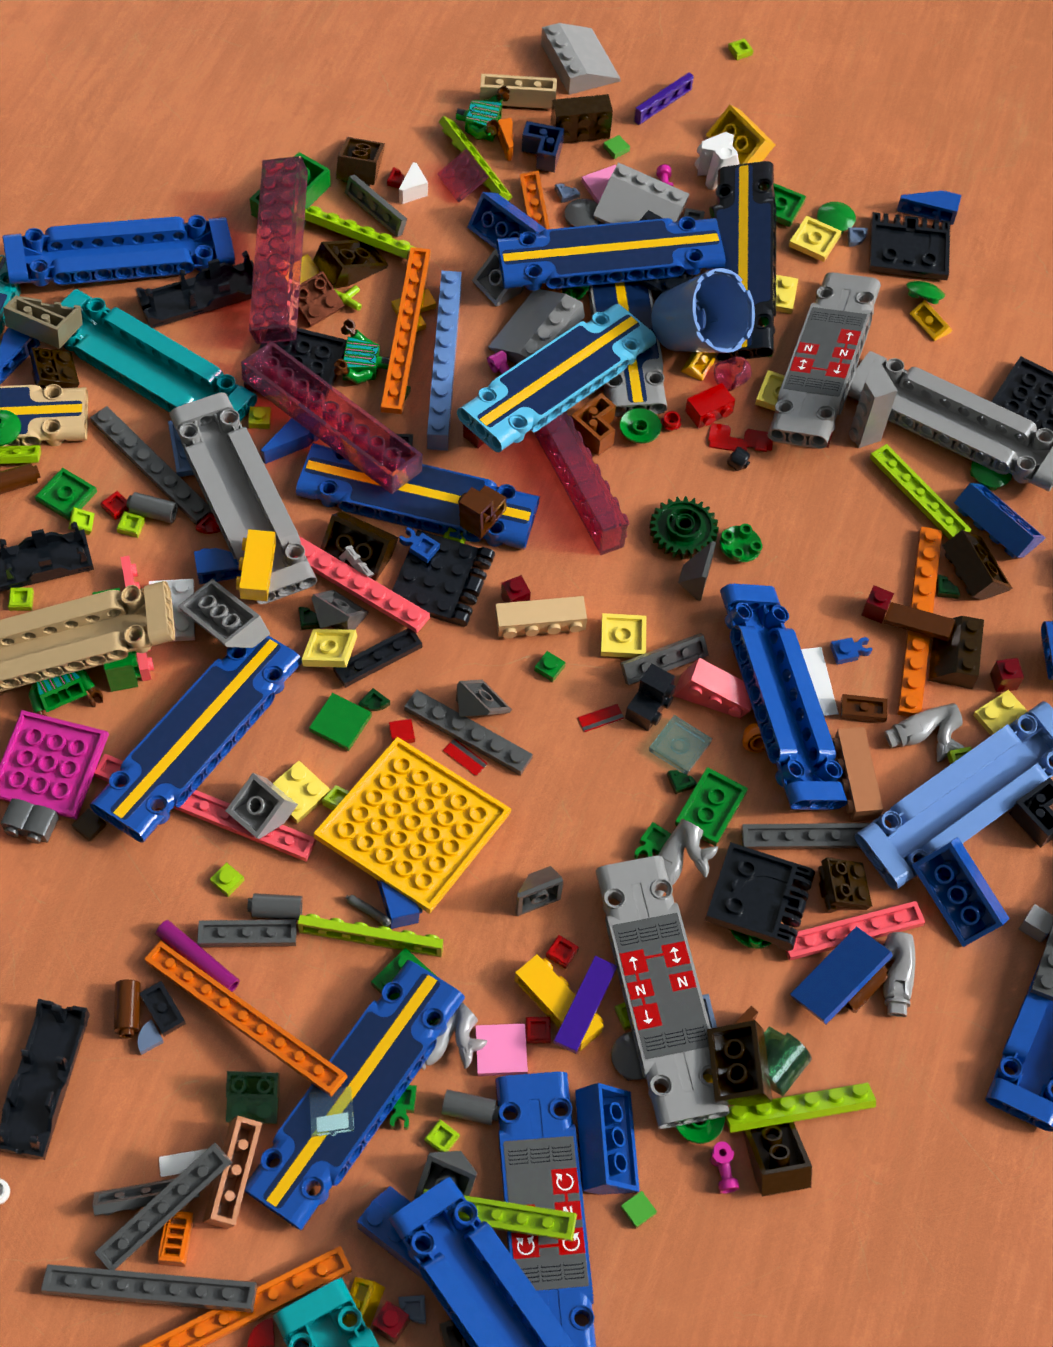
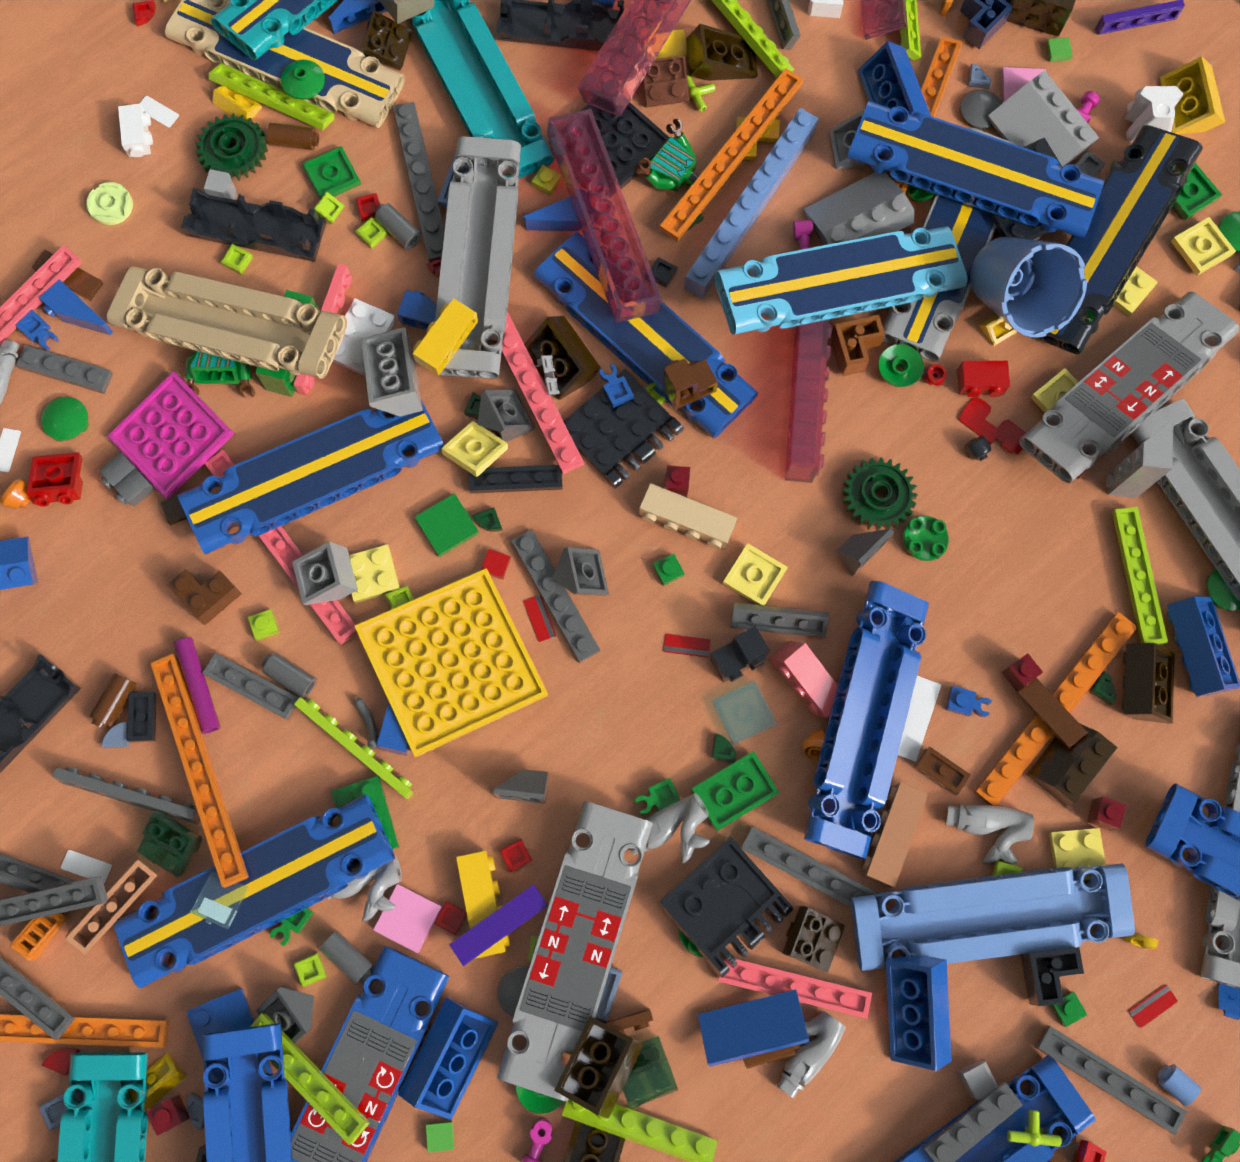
camera: 30 degrees right, 15 degrees up
(159, 883) = (207, 599): none -> reddish brown brick
(183, 1080) = (118, 791): none -> dark grey plate
(735, 367) = (1034, 349): clear pink hair -> none

